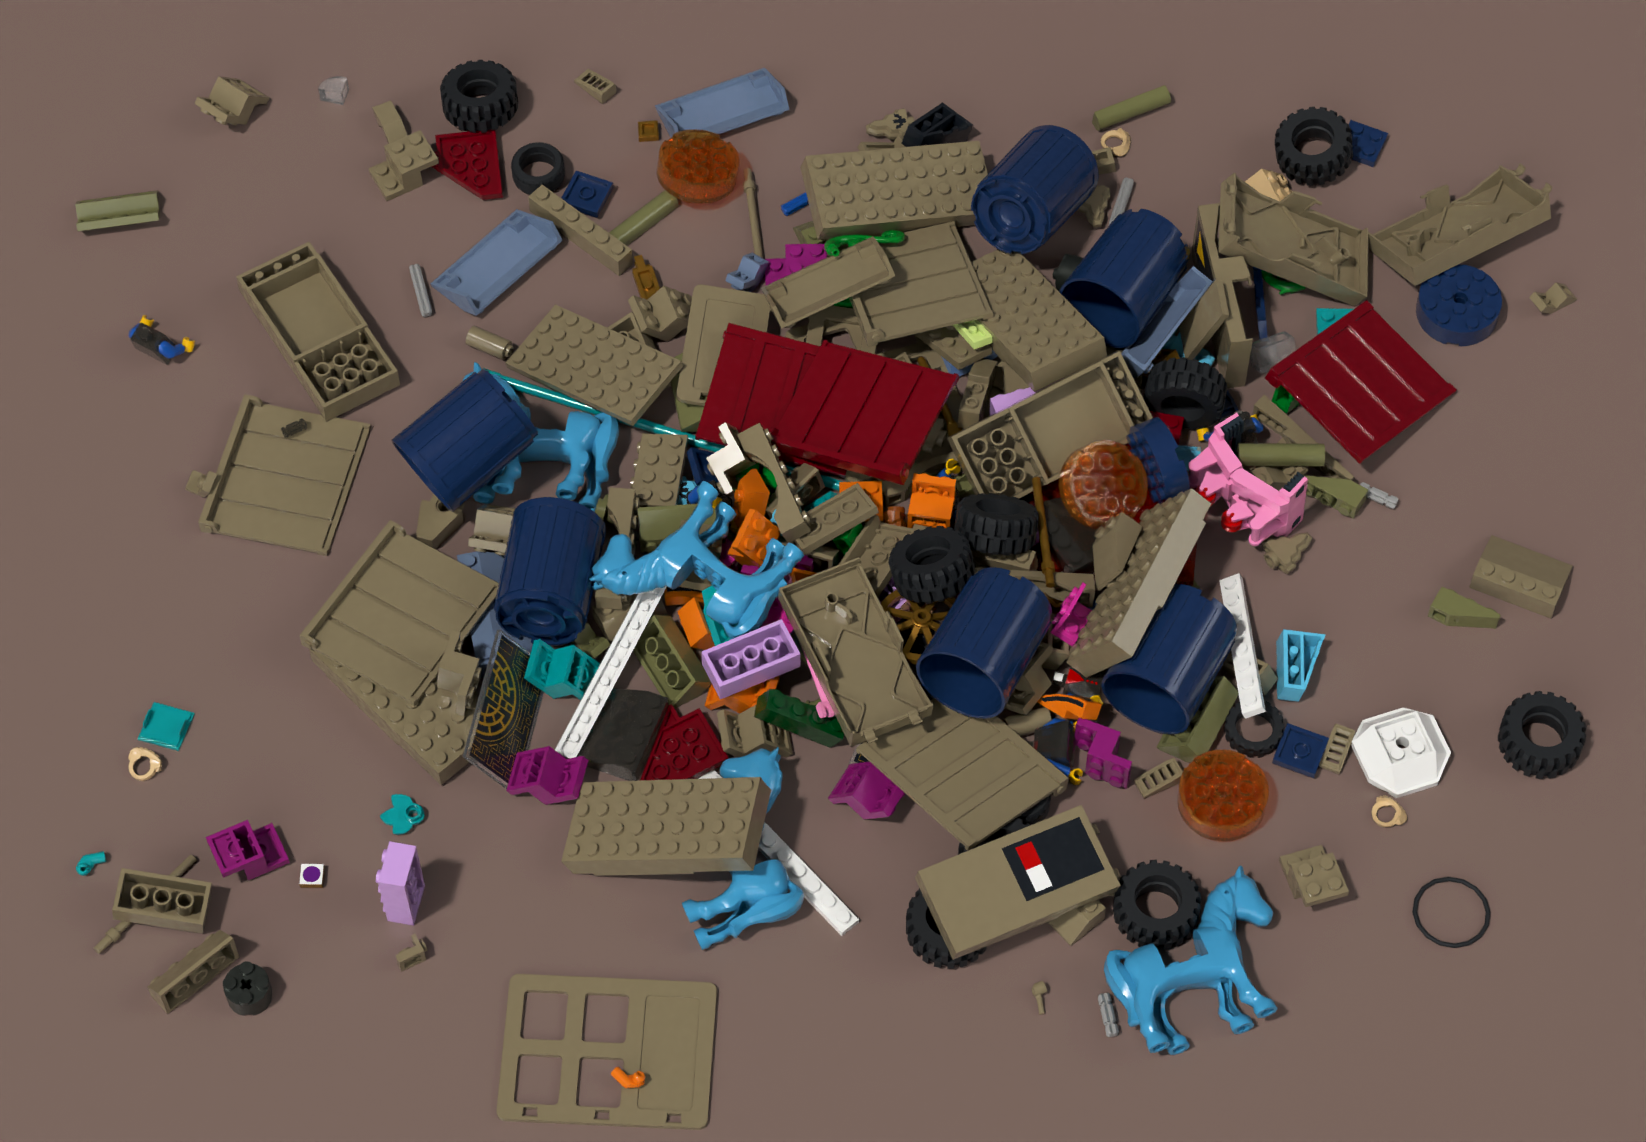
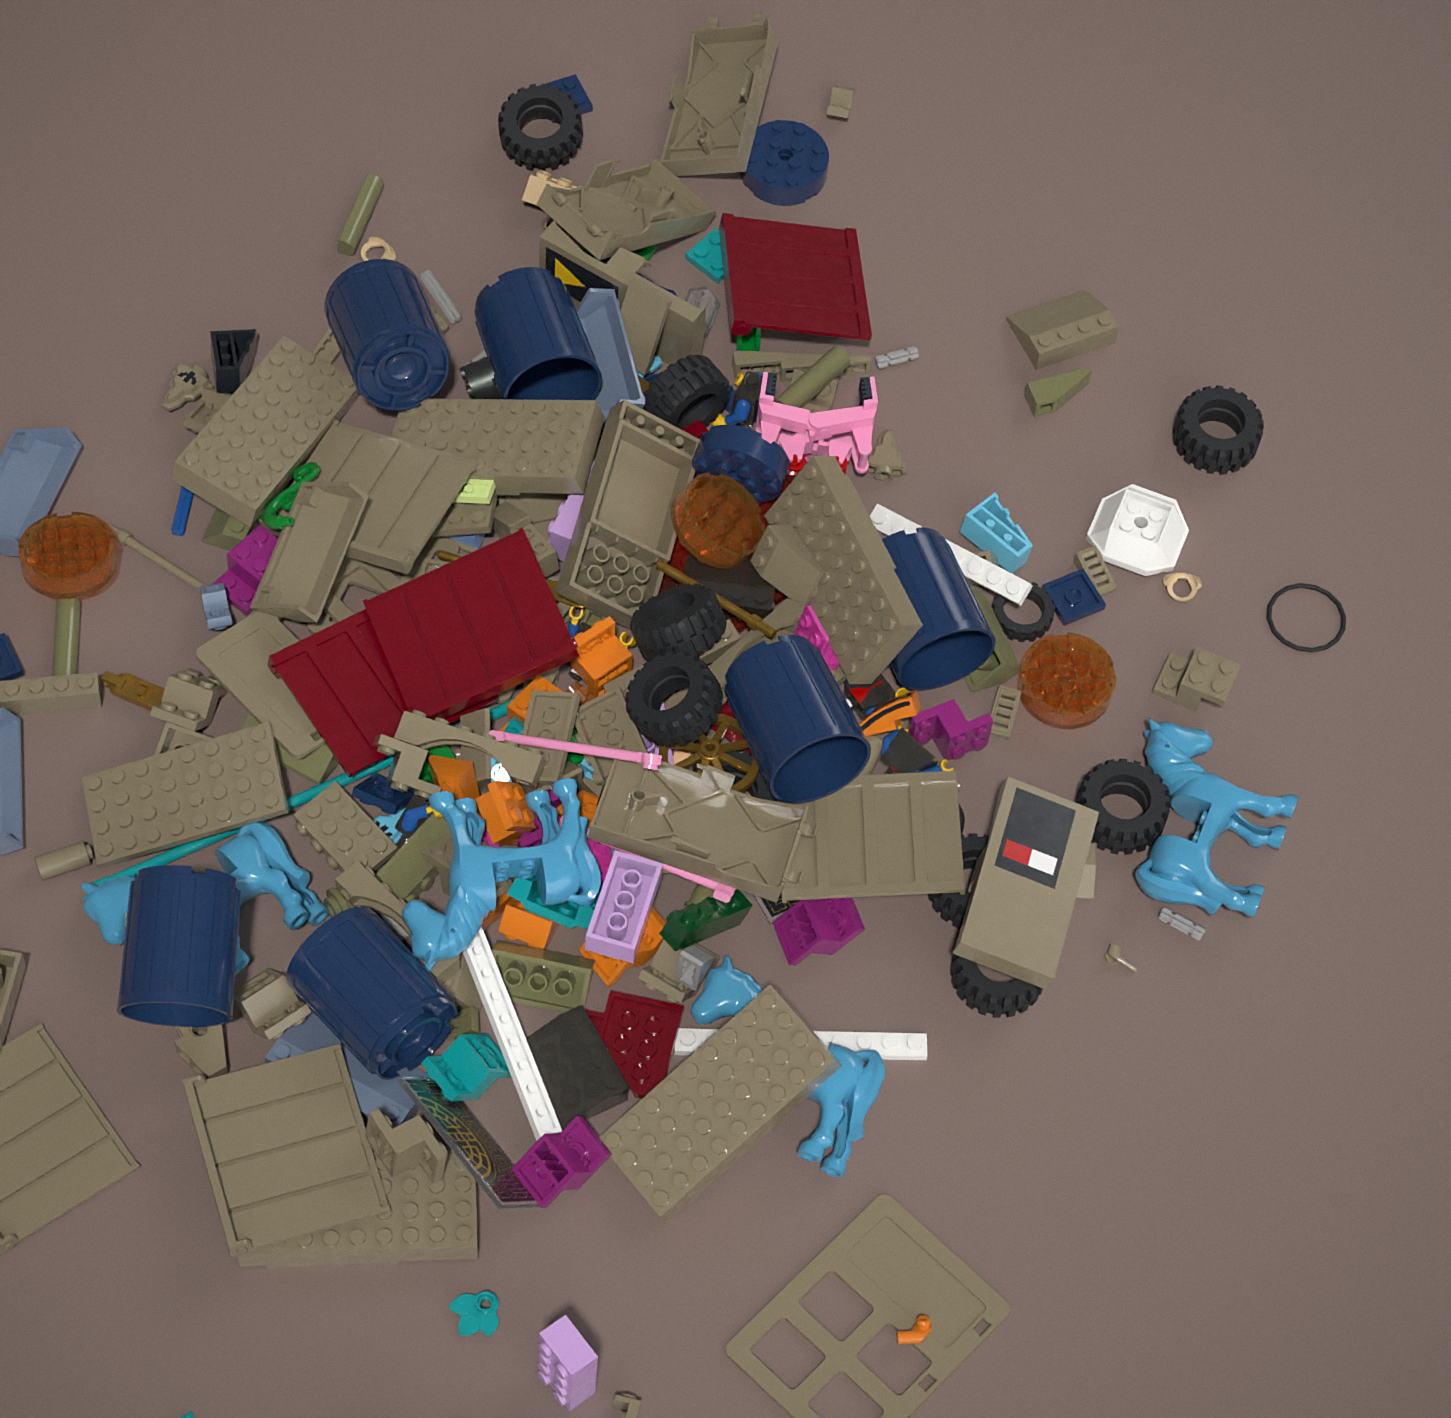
camera: 55 degrees left, 0 degrees up
(754, 734) = (693, 966): none -> light grey slope
(855, 580) = (649, 761): none -> bright pink hinge
(1337, 493) = (885, 375): olive slope -> none

